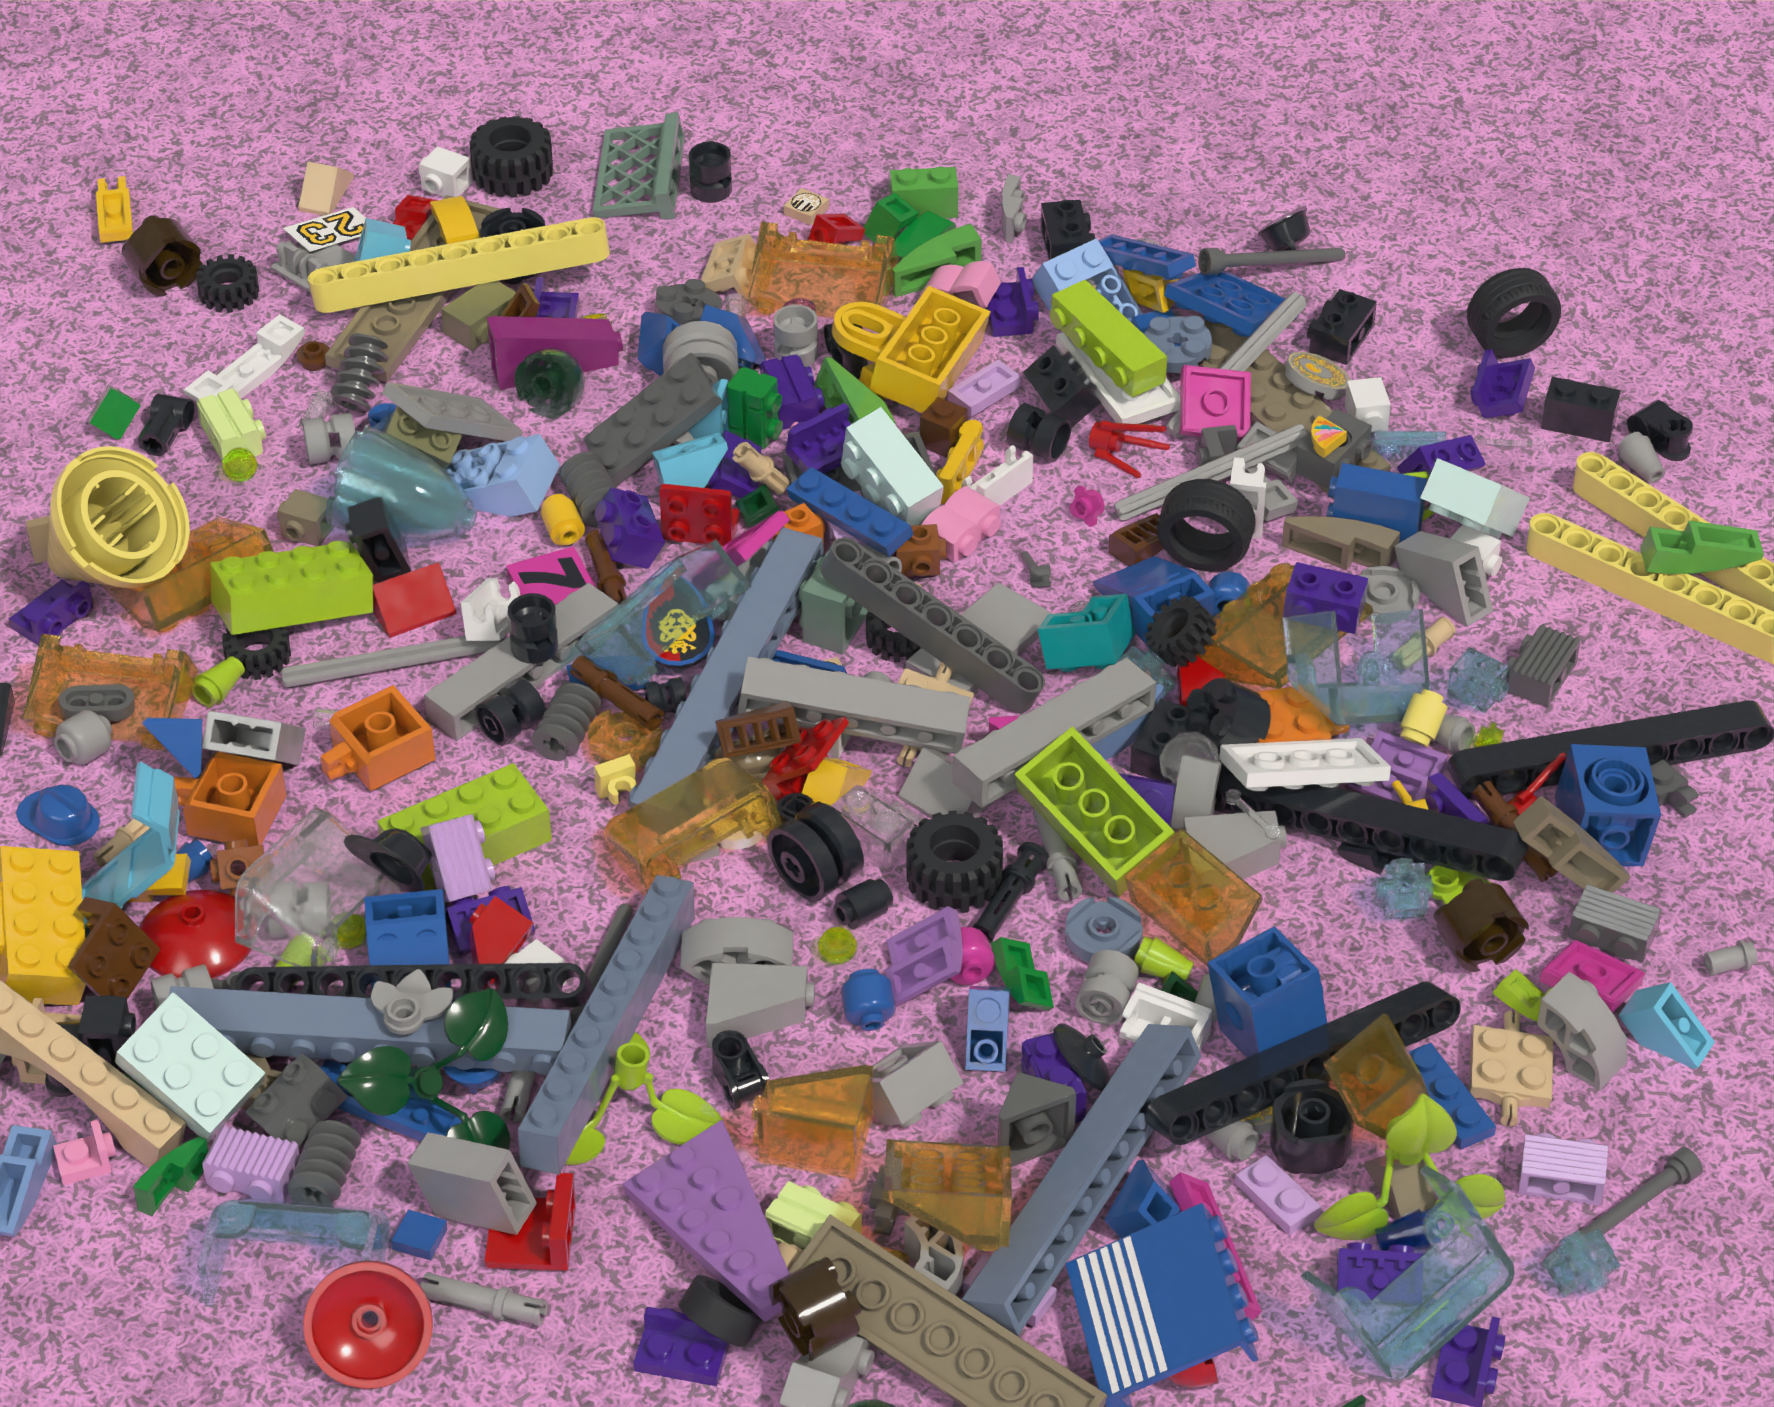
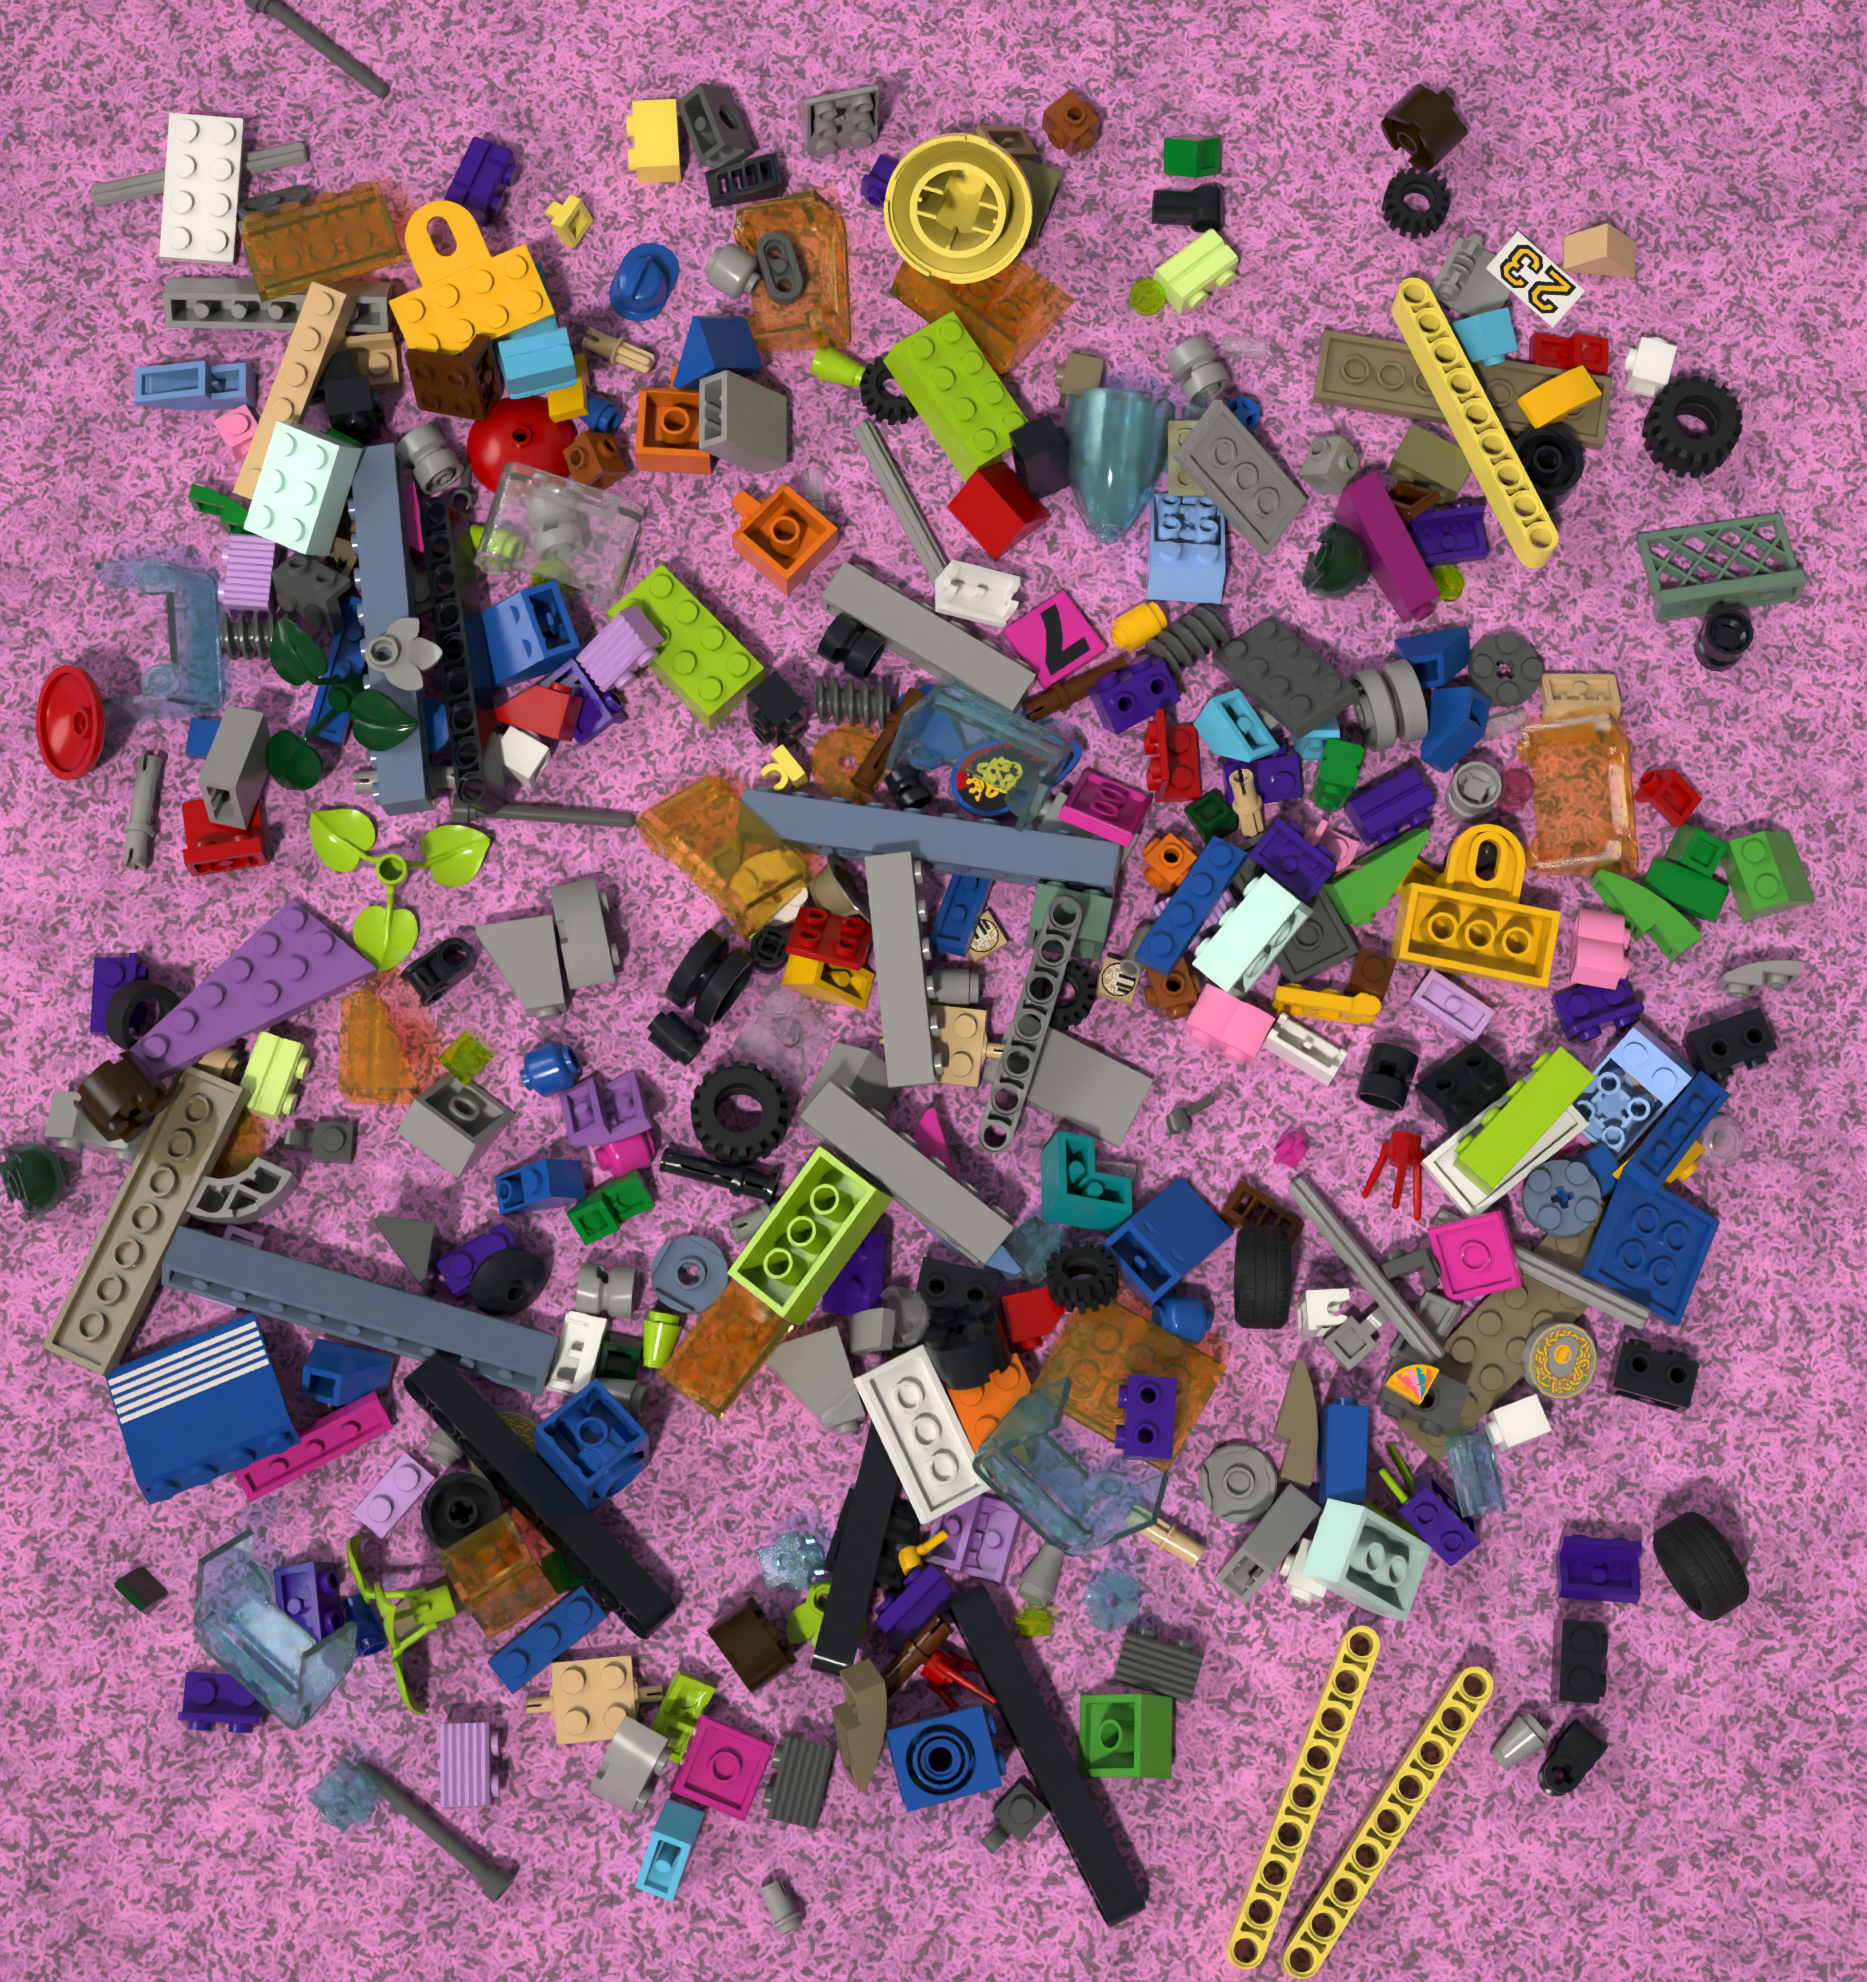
camera: 70 degrees right, 30 degrees up
(39, 475) = (1071, 124): none -> dark orange brick
(114, 211) = (1503, 57): yellow hinge -> none
(259, 363) = (1290, 262): white slope -> none
(312, 355) = (1331, 307): reddish brown plate -> none
(357, 372) = (1290, 374): dark grey piece -> none
(395, 855) = (594, 590): black piece -> none
(457, 370) = (1330, 464): none -> light grey brick
(533, 628) = (933, 637): black wheel -> none
(560, 764) = (776, 712): none -> black brick
(604, 1025) = (449, 837): sand blue brick -> none
(775, 740) = (834, 888): reddish brown slope -> none
(805, 206) = (1710, 756): tan tile -> none
(836, 1059) = (465, 1058): none -> clear neon green plate
(837, 945) = (620, 1026): clear neon green plate -> none
(953, 1188) = (290, 1187): clear yellow slope -> none
(1213, 261) = (1703, 1216): dark grey piece -> none
(1287, 230) = (1804, 1286): black piece -> none
(1423, 717) = (1031, 1548): light yellow brick -> none
(1601, 693) = (1125, 1736): none -> bright green slope
(1699, 548) = (1347, 1820): bright green slope -> none

